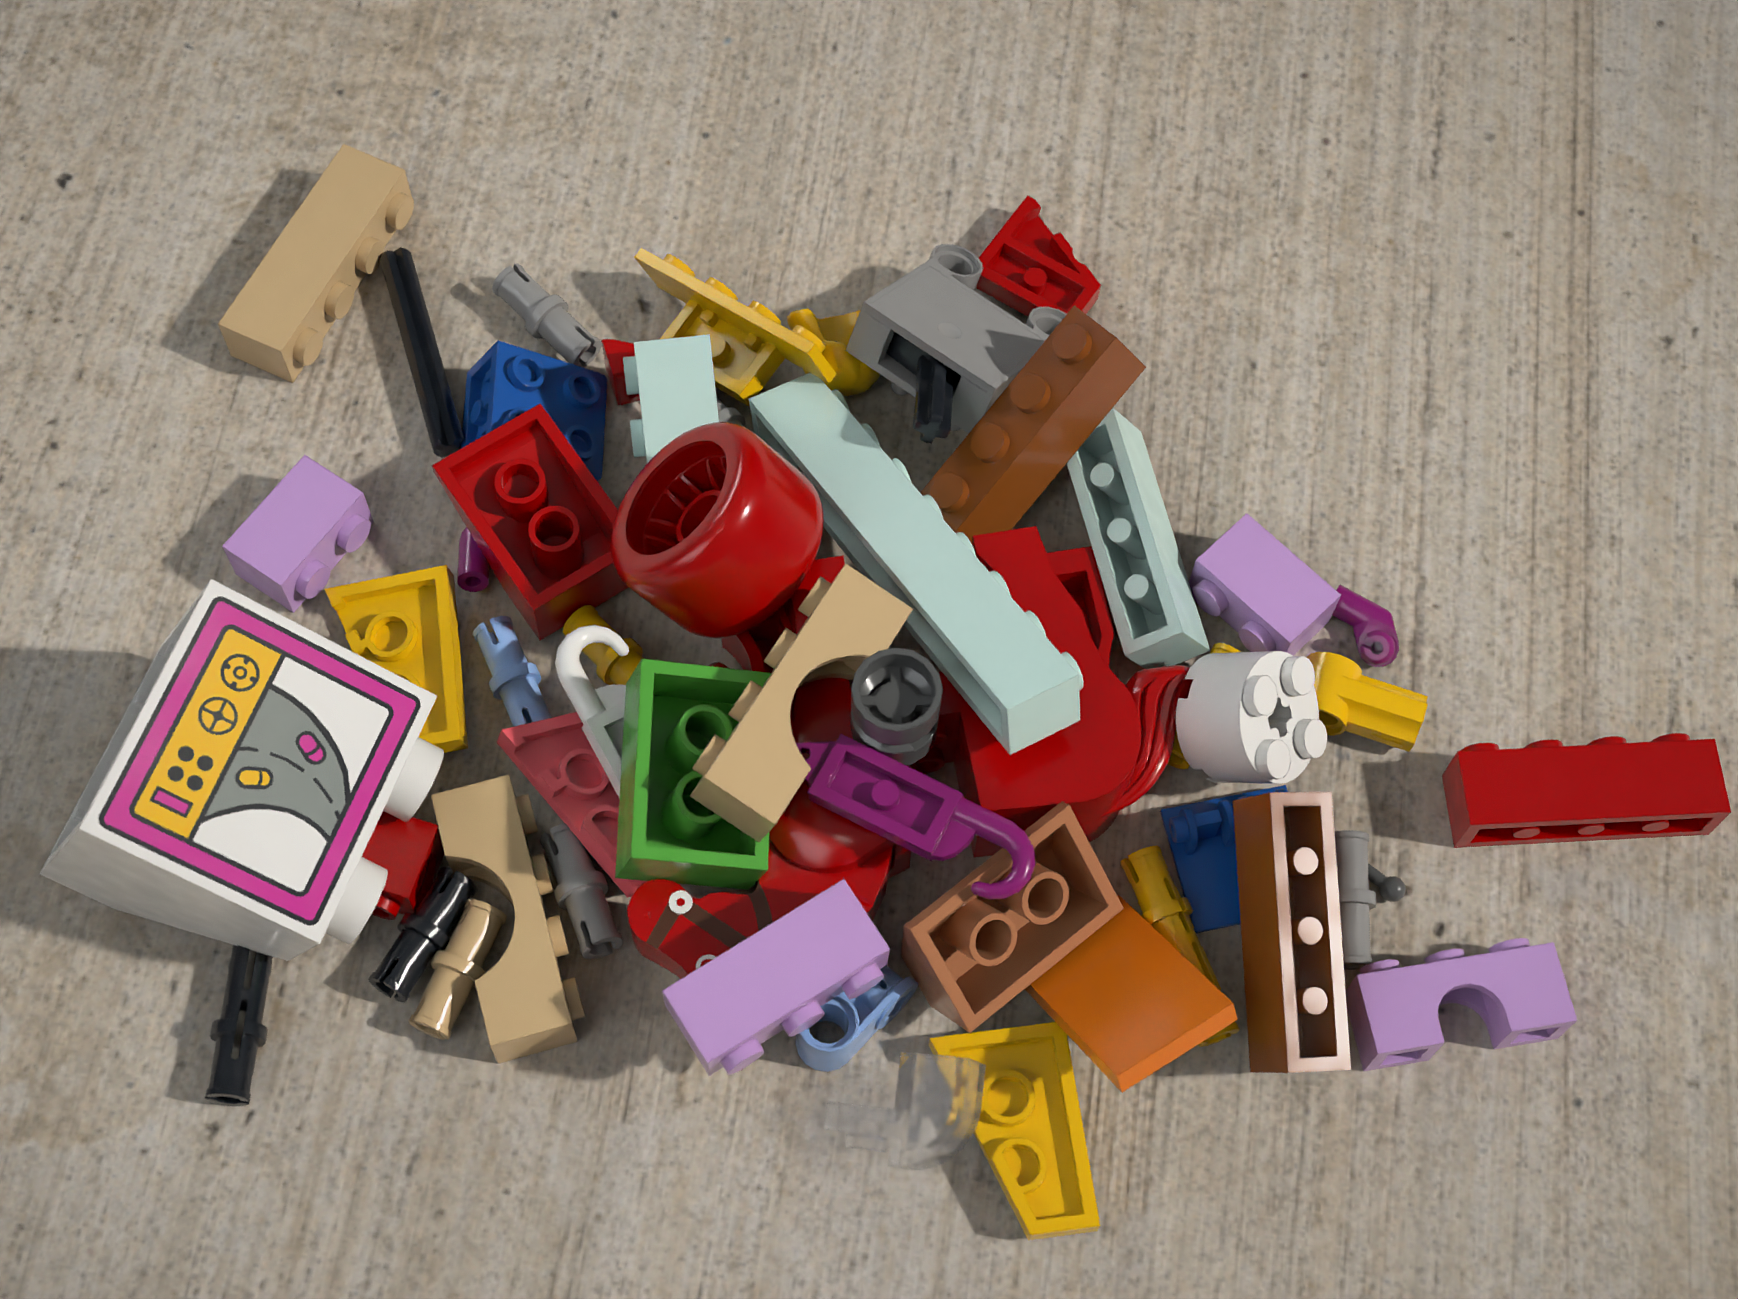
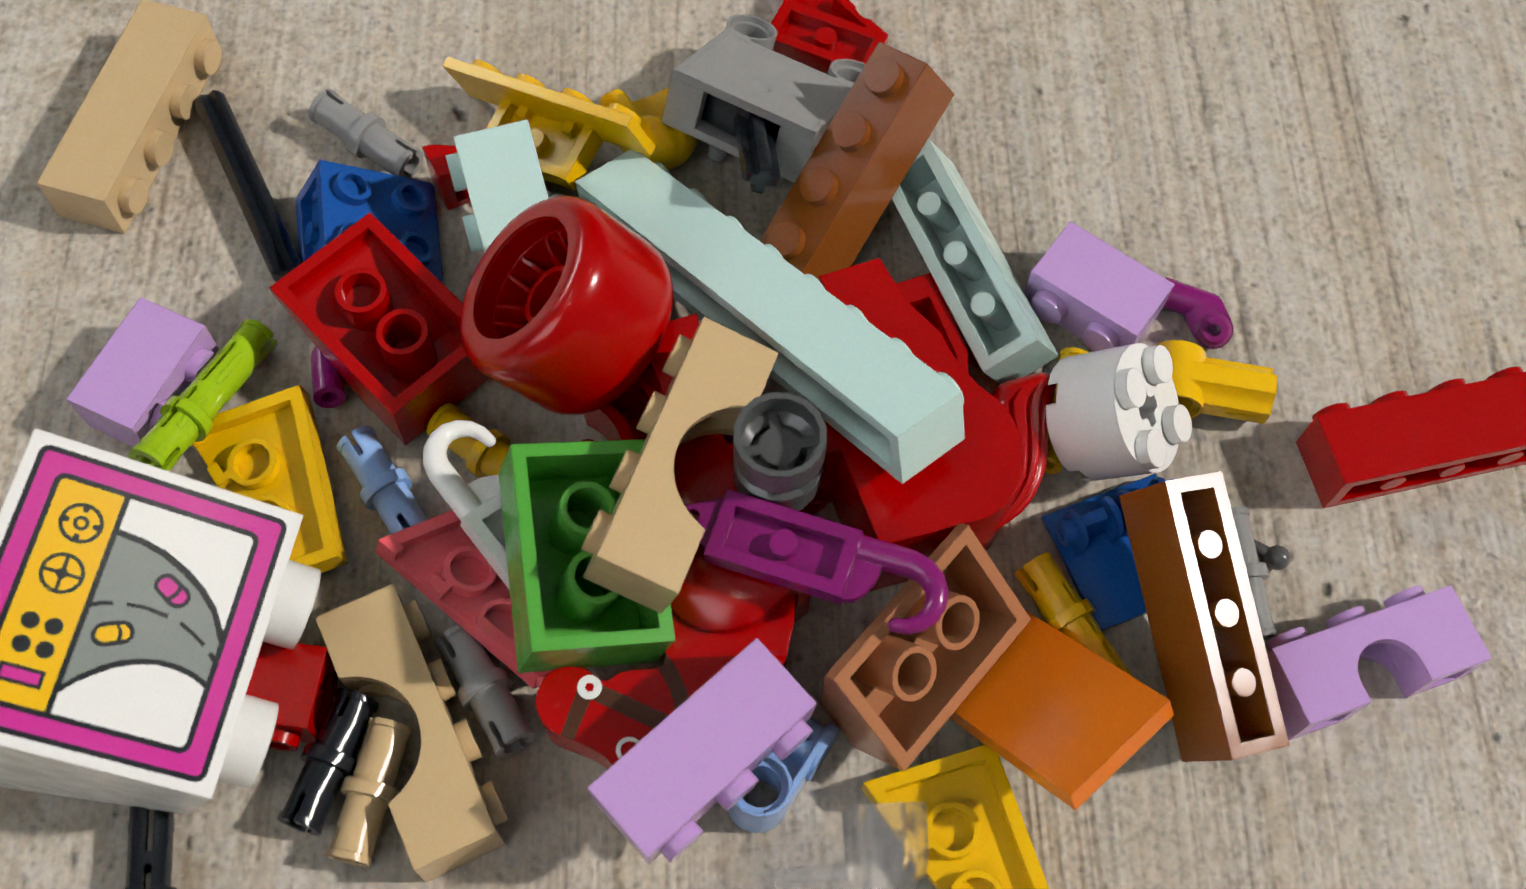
camera: 10 degrees left, 0 degrees up
(336, 579) = (191, 414): none -> lime pin

